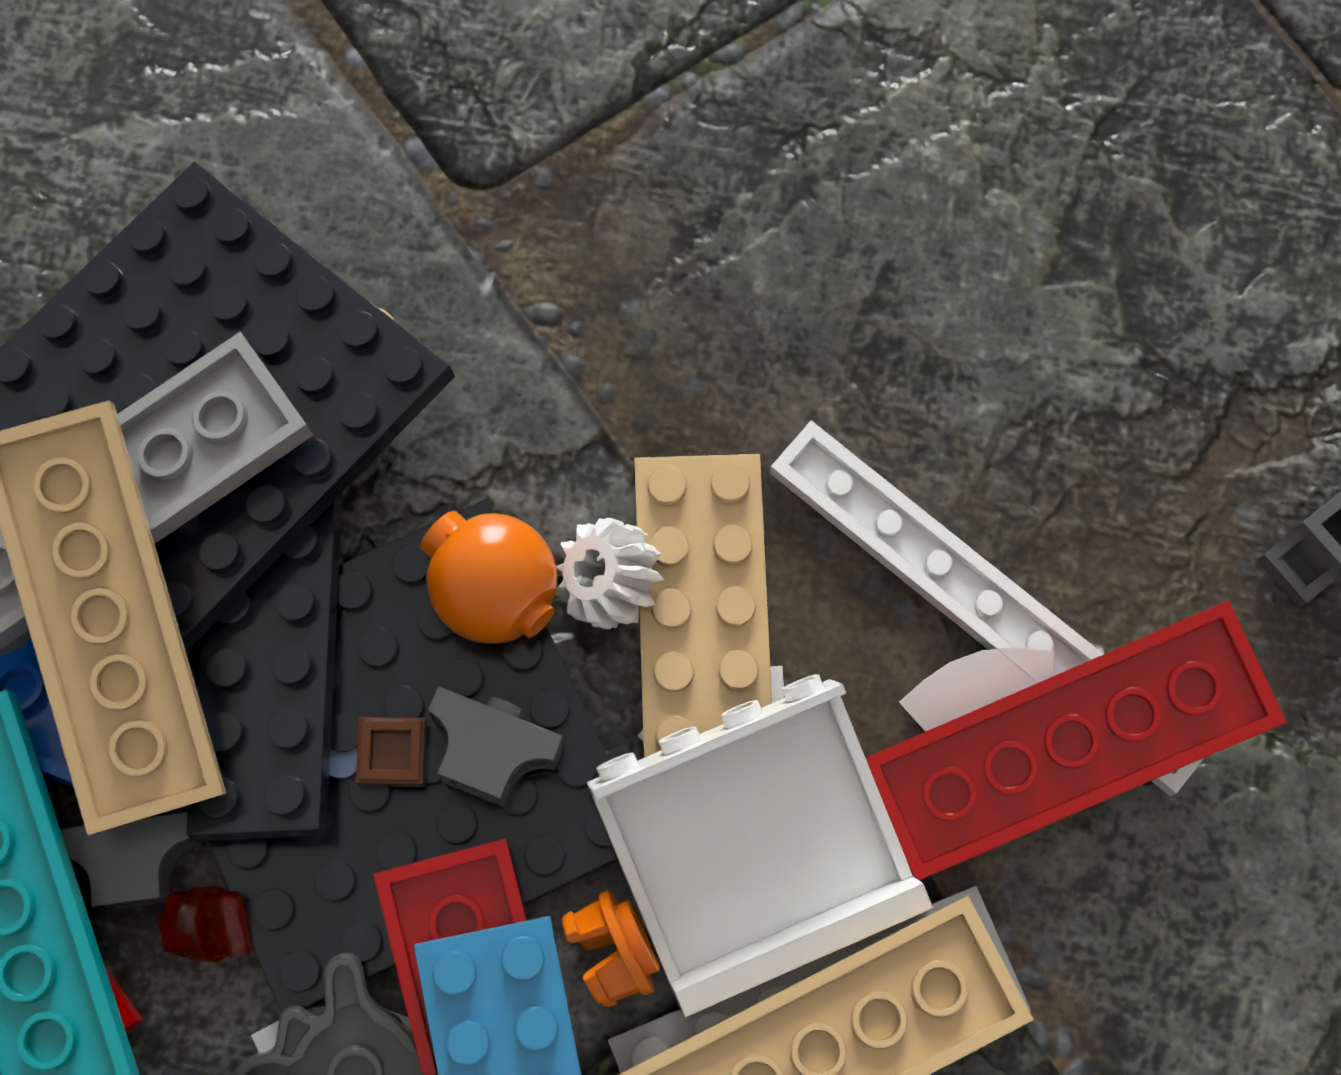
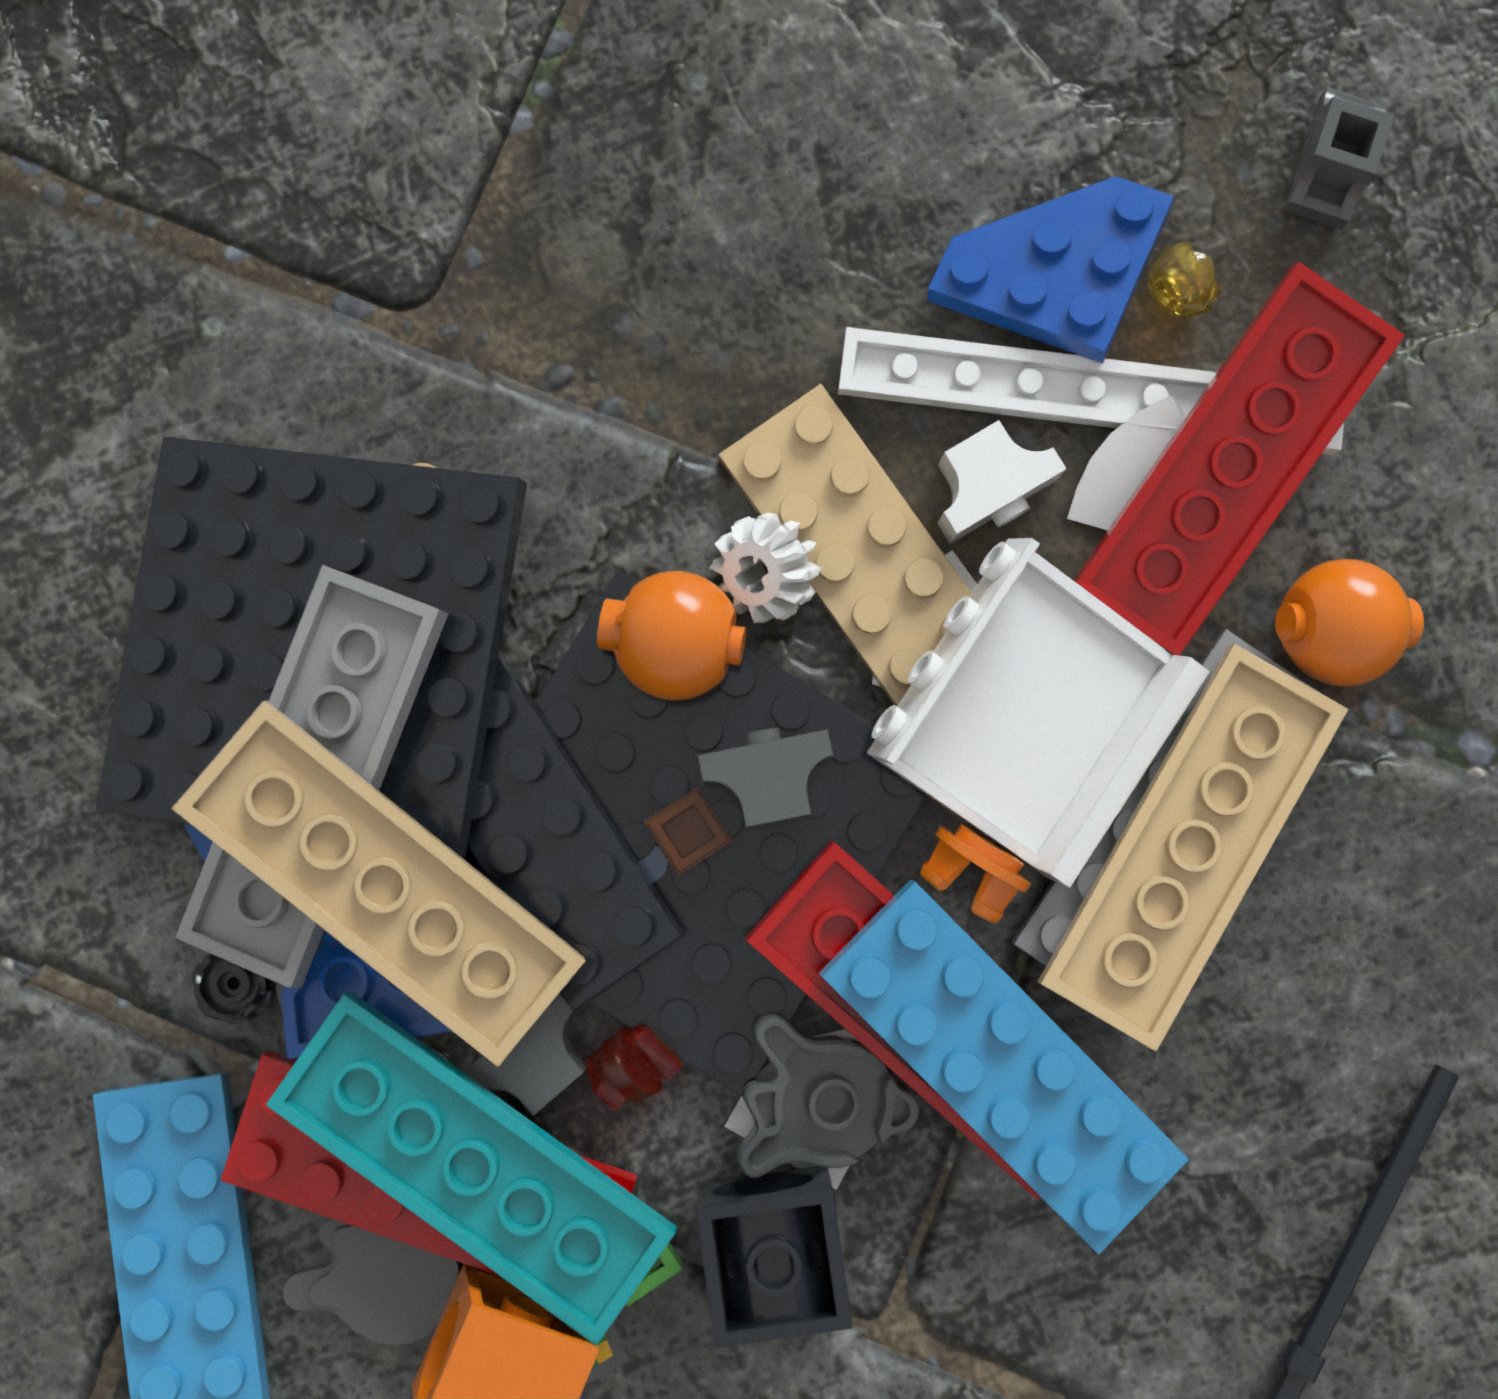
camera: 30 degrees left, 10 degrees up
(852, 626) = (992, 480): none -> white brick
(1027, 485) = (1058, 266): none -> blue plate
(1086, 947) = (1347, 622): none -> orange brick
(1126, 562) = (1183, 281): none -> clear yellow plate

